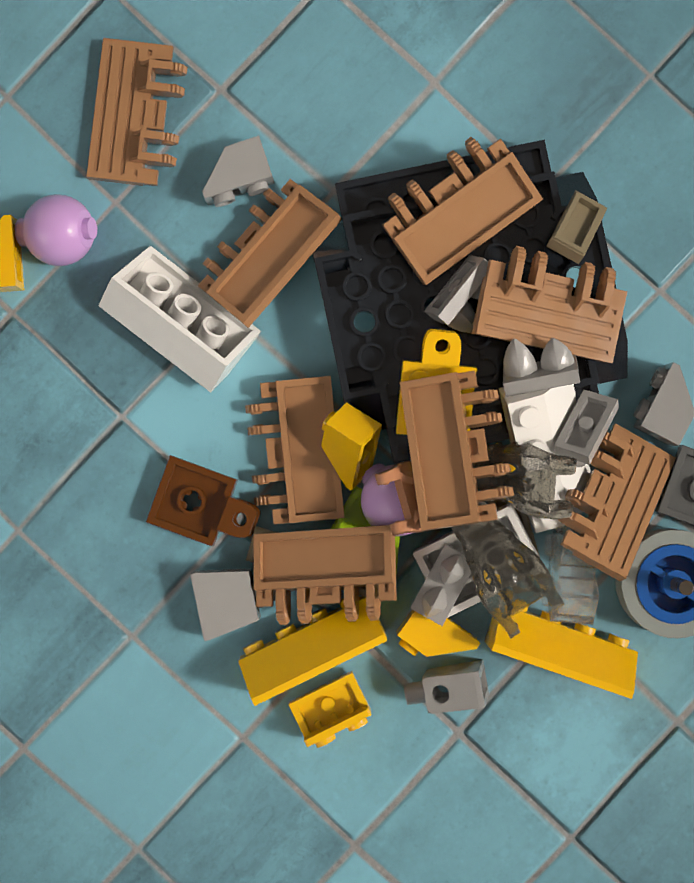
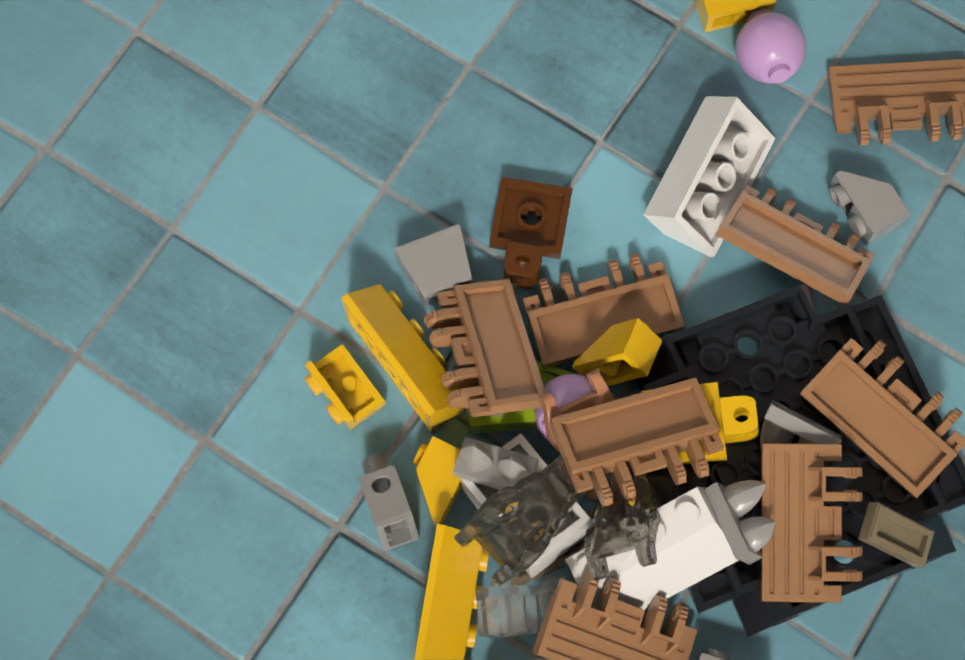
camera: 85 degrees right, 15 degrees down
(586, 427) = (688, 581): light grey tile -> none

